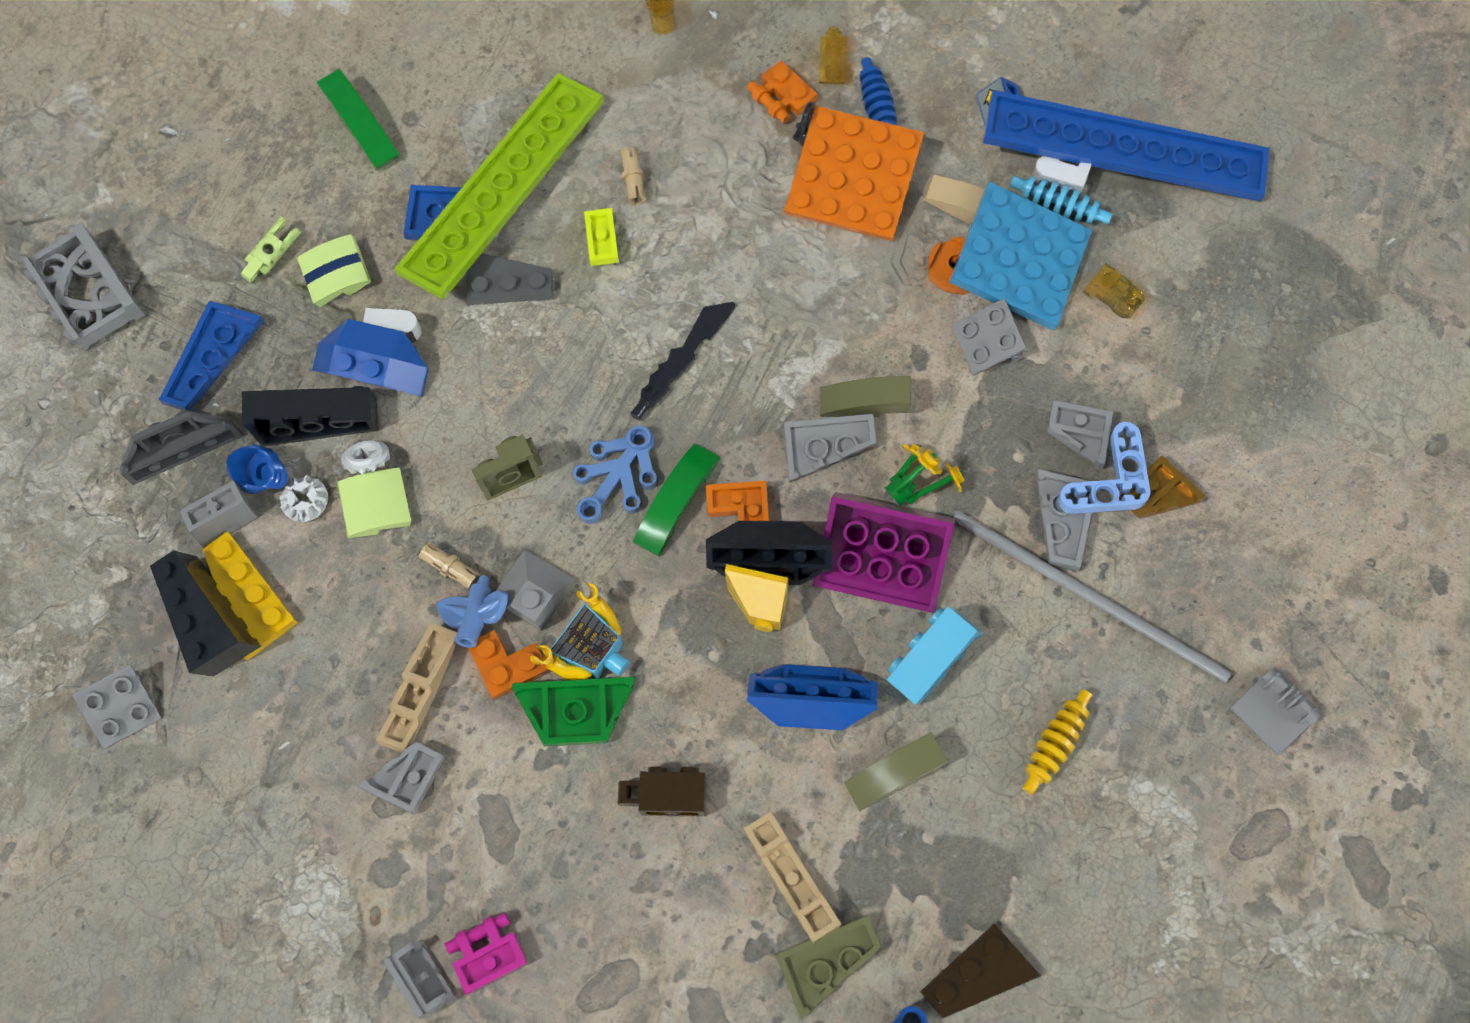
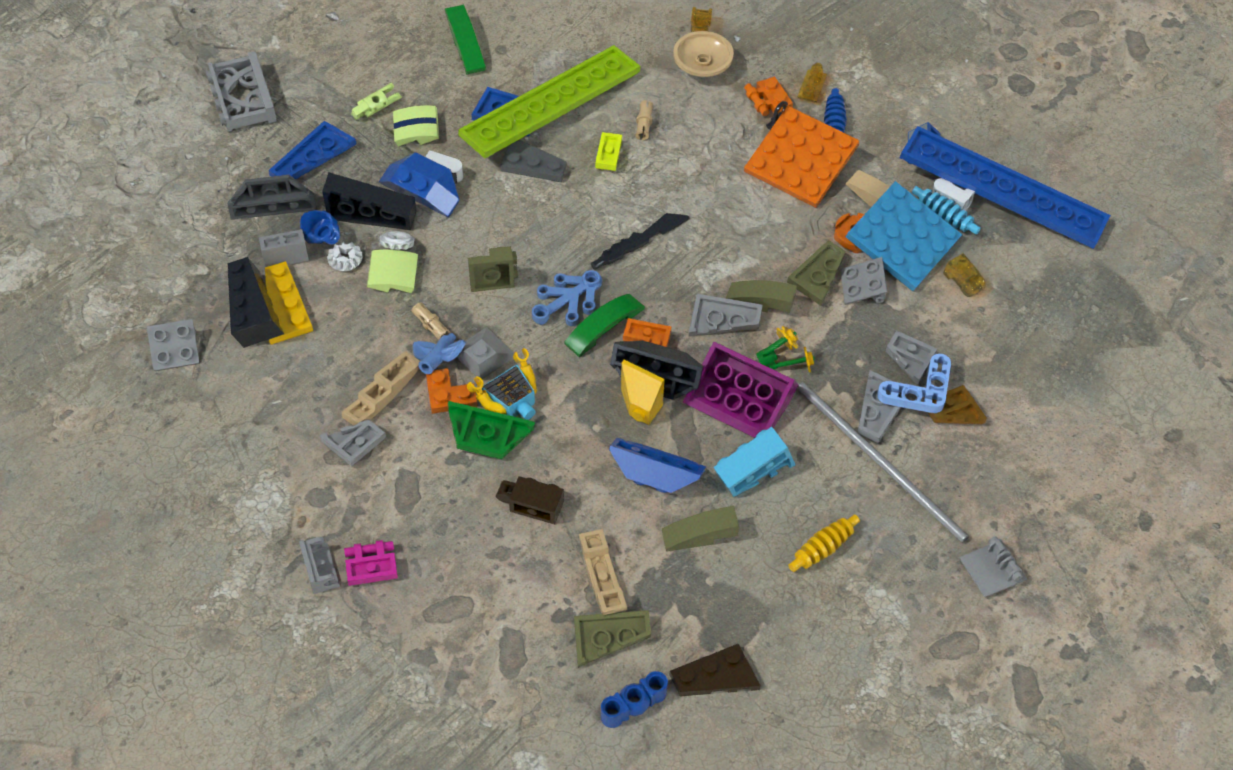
camera: 10 degrees right, 15 degrees down
(678, 44) = (703, 53): none -> tan dish
(927, 340) = (818, 272): none -> olive wing

